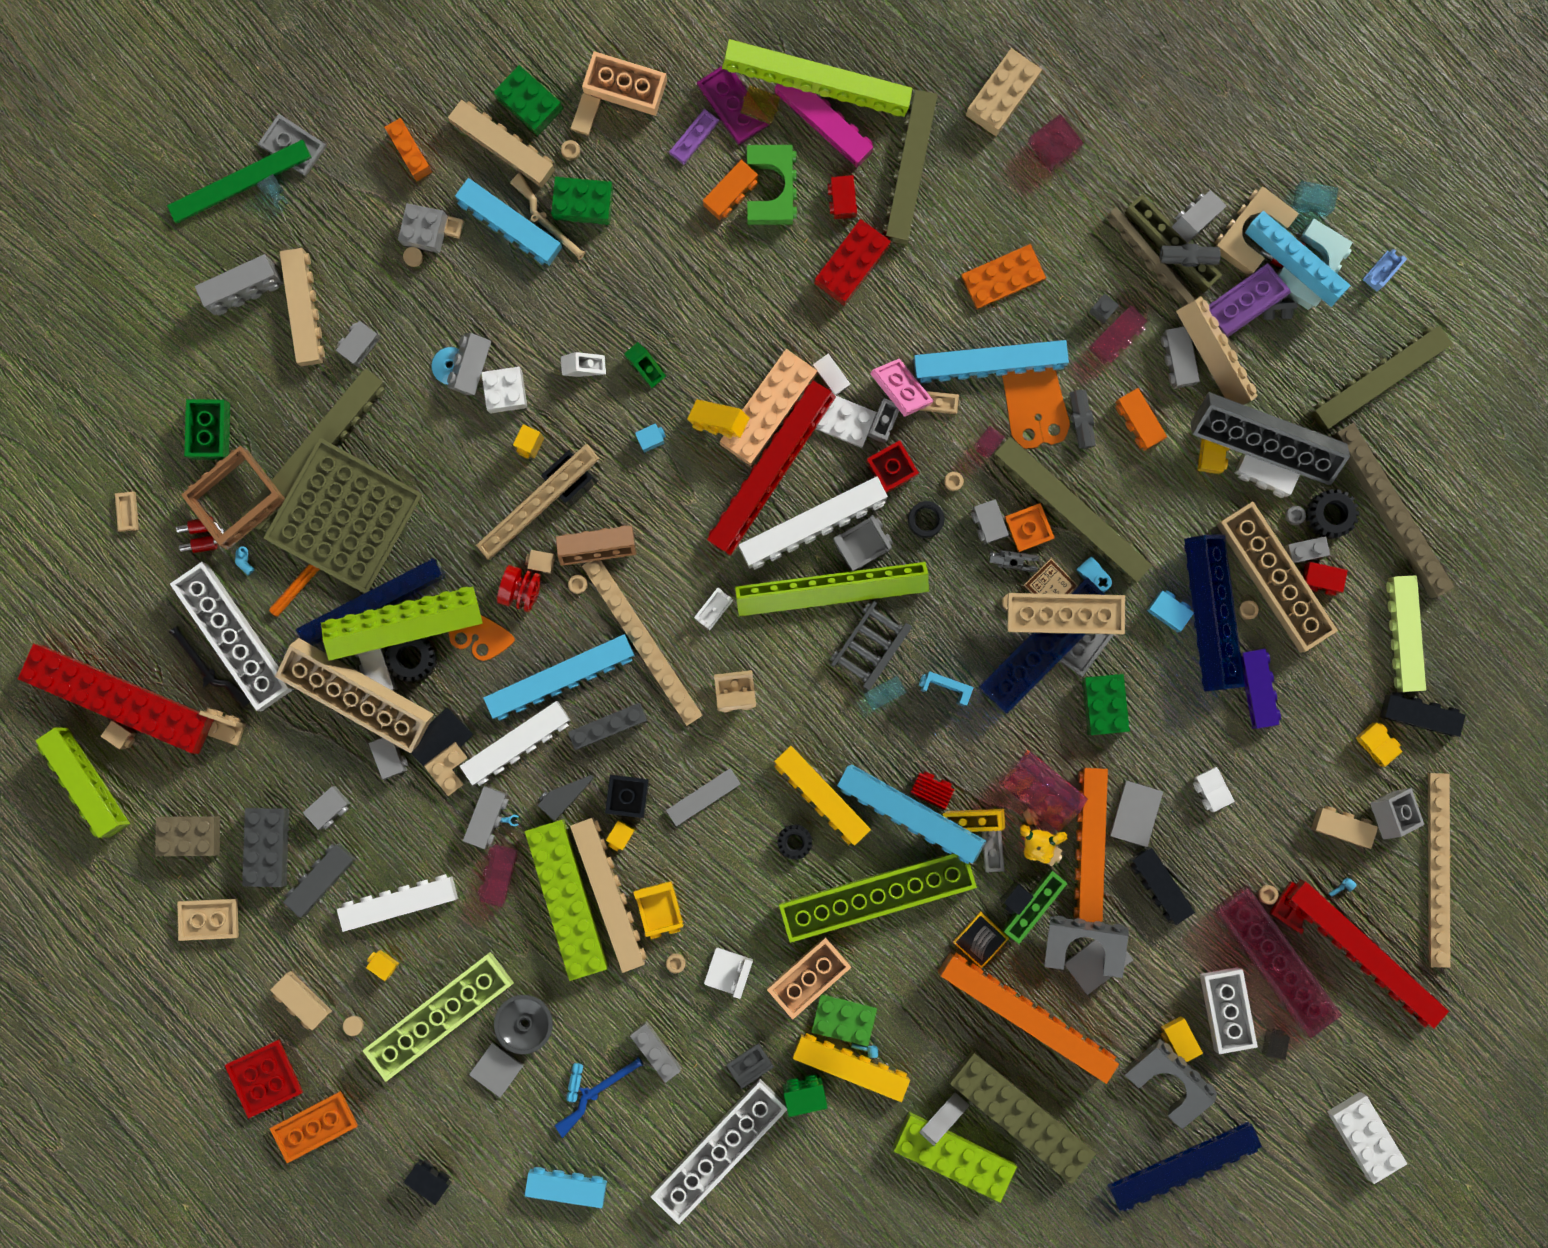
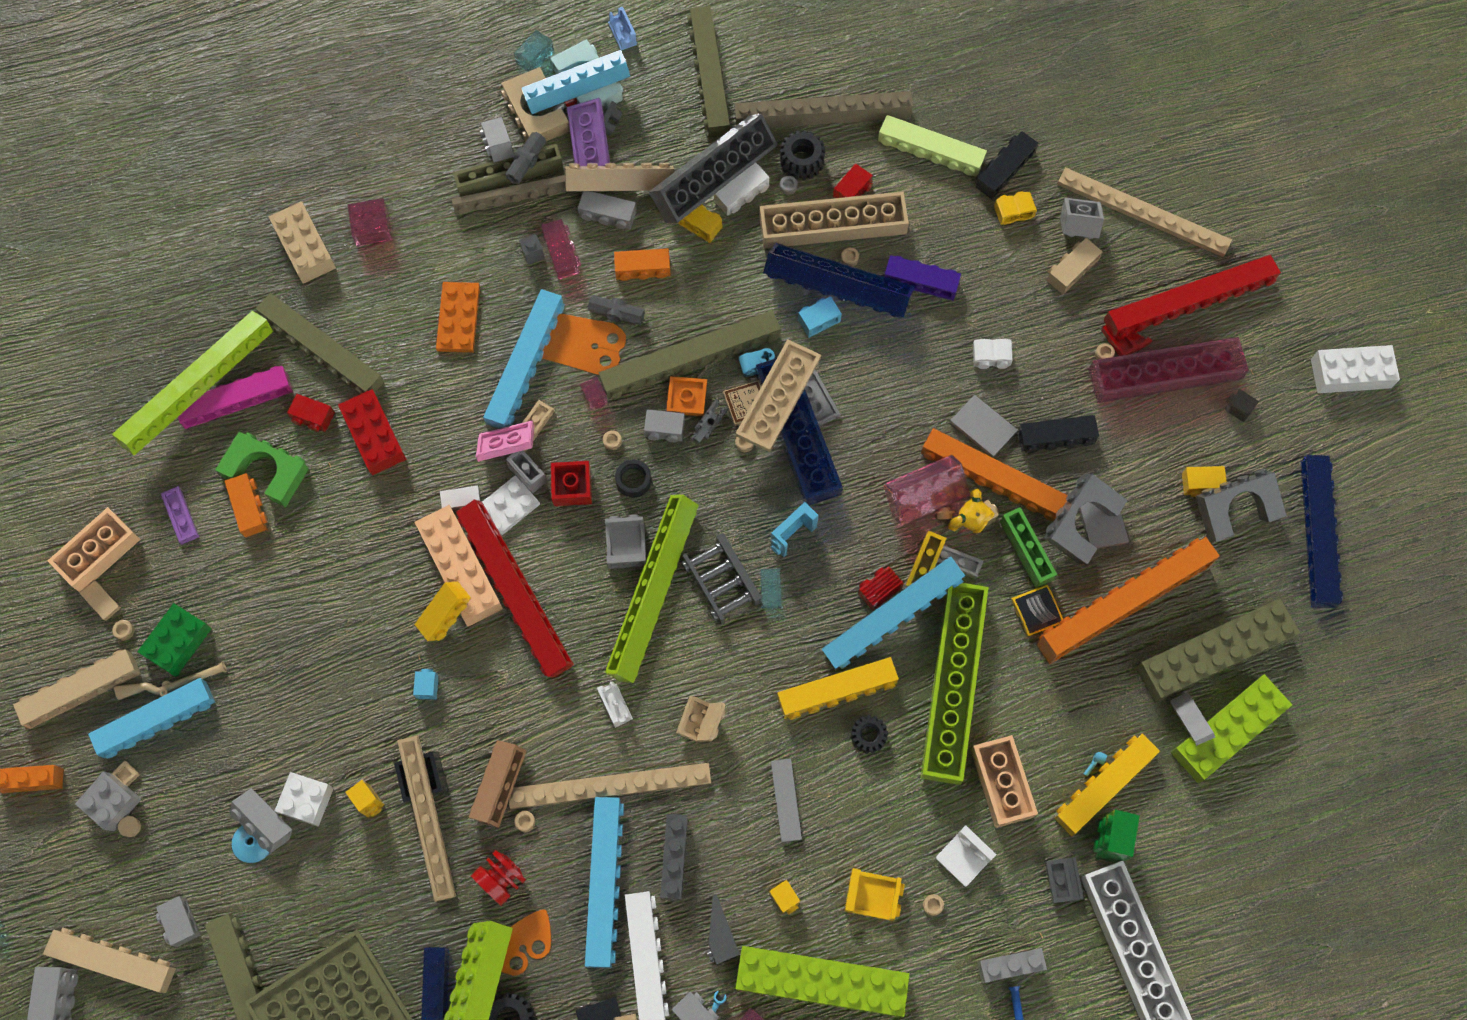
camera: 60 degrees left, 15 degrees down
(528, 100) = (54, 644): green brick -> none
(540, 561) = (484, 845): tan brick -> none
(583, 364) = (323, 714): white slope -> none
(608, 895) = (837, 938): tan brick -> none
(627, 796) = (750, 870): black brick -> none
(645, 364) = (356, 656): green slope -> none
(726, 96) = (172, 467): magenta tile -> none
(760, 104) = (187, 444): clear yellow piece -> none
(813, 522) = (583, 575): white brick -> none
(844, 1020) = (1058, 770): bright green plate -> none
(1015, 899) = (1014, 559): black brick -> none
(1105, 704) = (874, 405): green brick -> none
(1228, 1010) = (1194, 428): white brick -> none
(1308, 550) = (823, 184): light grey brick -> none
(1347, 883) = (1123, 287): medium azure hand -> none

